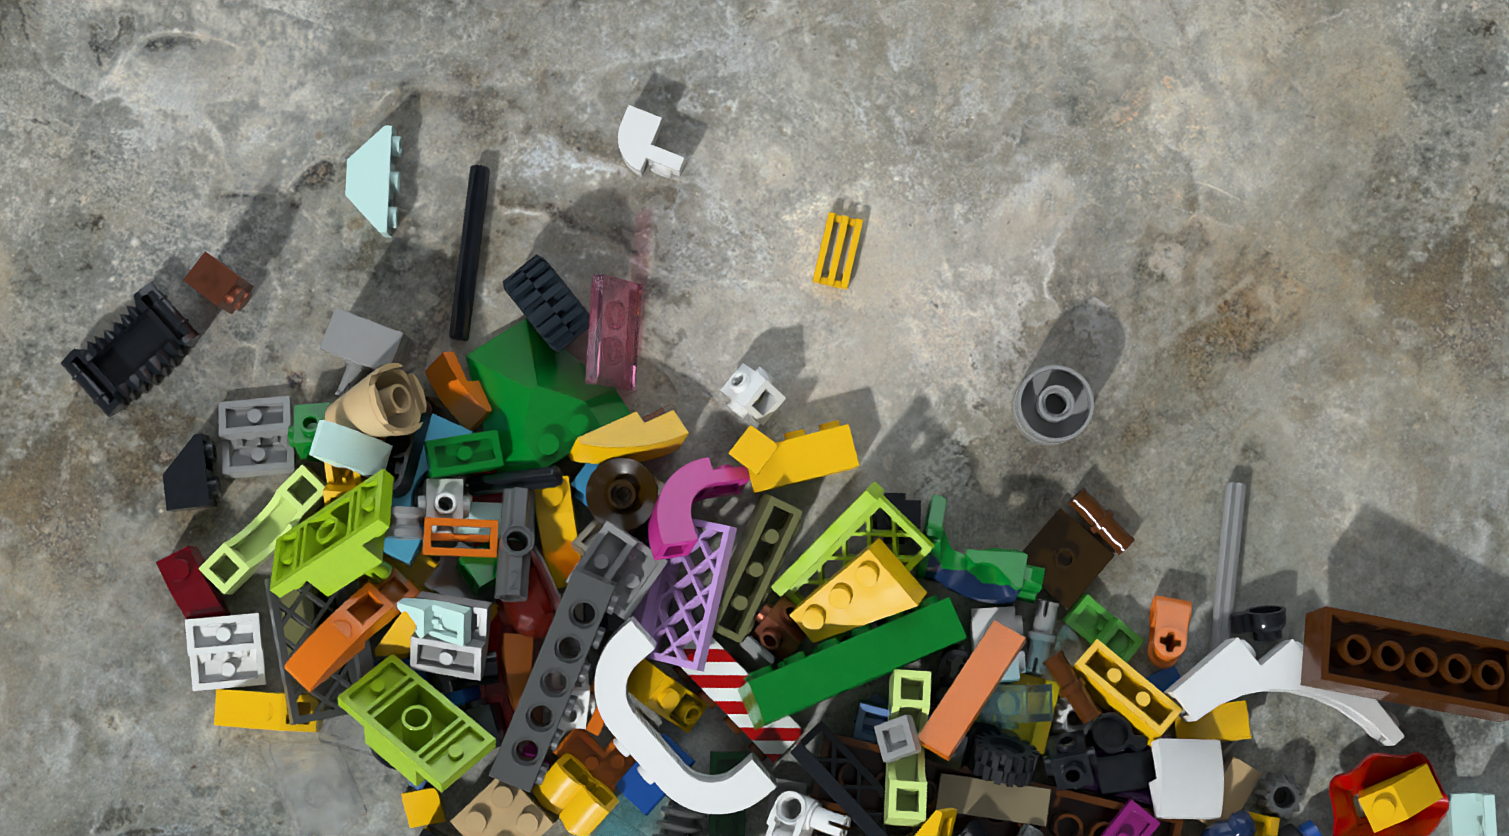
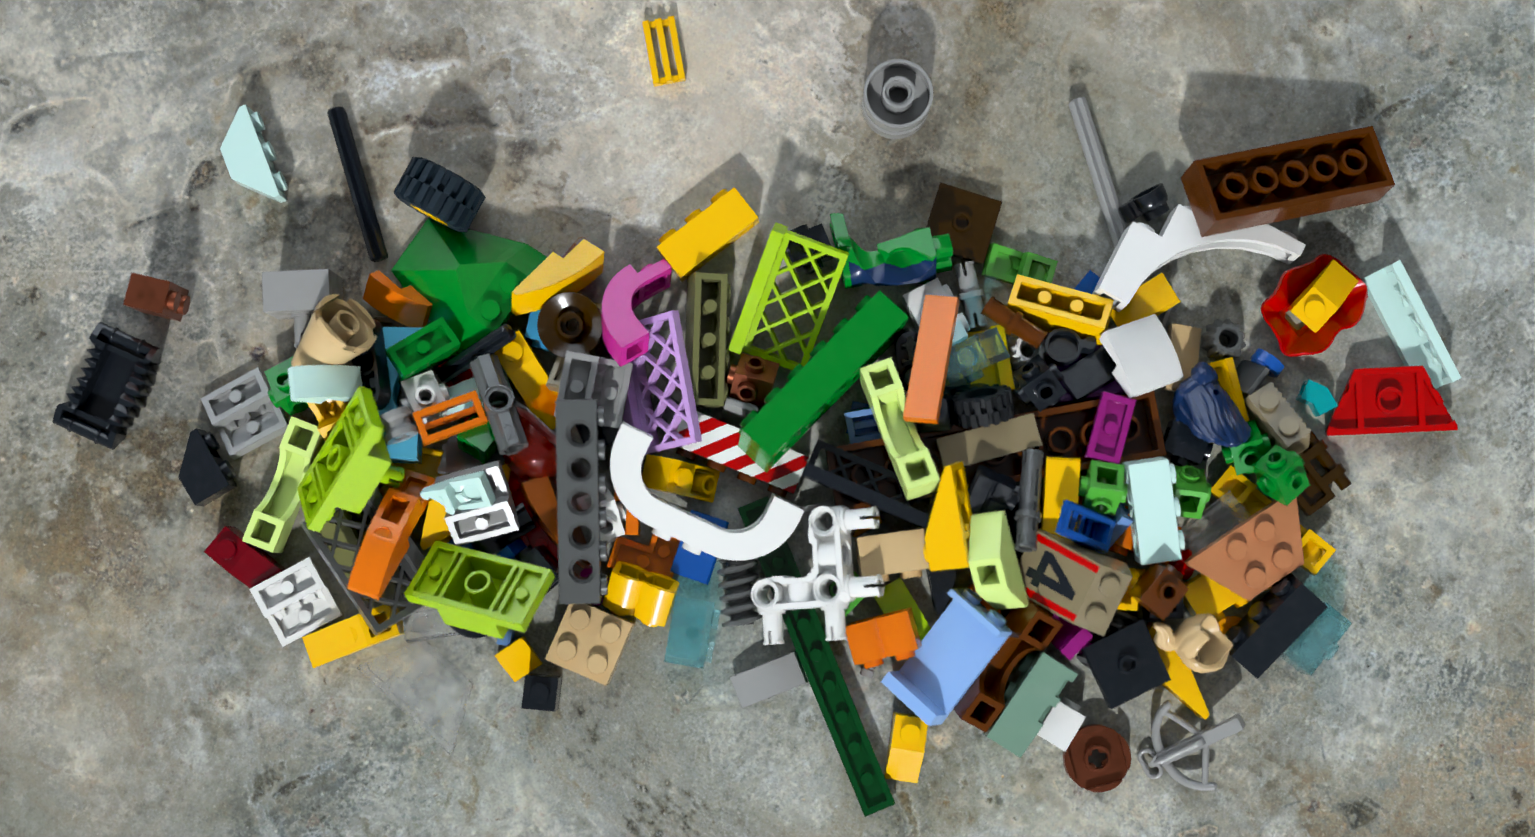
camera: 20 degrees left, 0 degrees up
(613, 332) = (505, 196): clear pink tile -> none
(637, 144) = (458, 32): white brick -> none
(752, 393) = (644, 197): white brick -> none
(753, 450) = (665, 241): yellow slope -> none
(858, 594) = (803, 320): yellow wedge -> none
(897, 738) = (887, 424): light grey tile -> none
(1101, 521) = (979, 178): reddish brown pin -> none
(1168, 625) = (1073, 244): orange piece -> none

